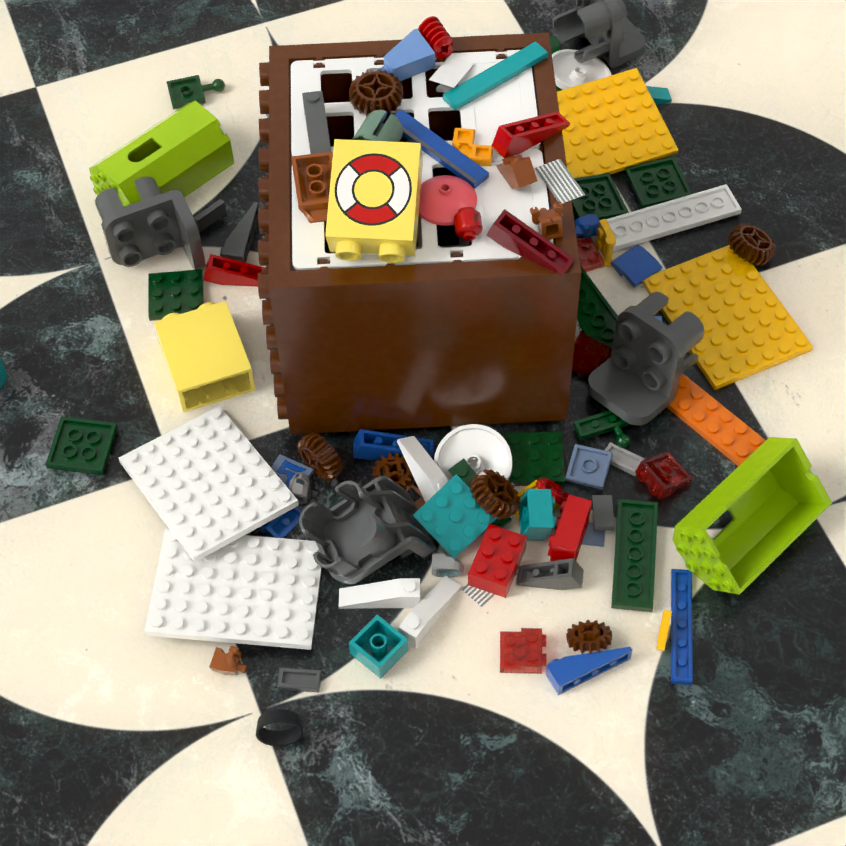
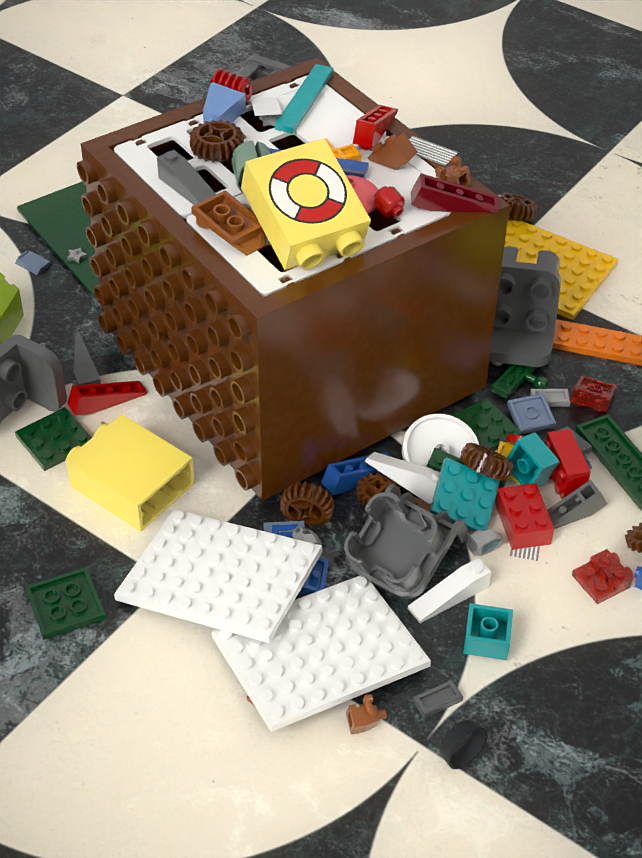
camera: 35 degrees left, 10 degrees down
(428, 611) = (502, 581): white slope -> none

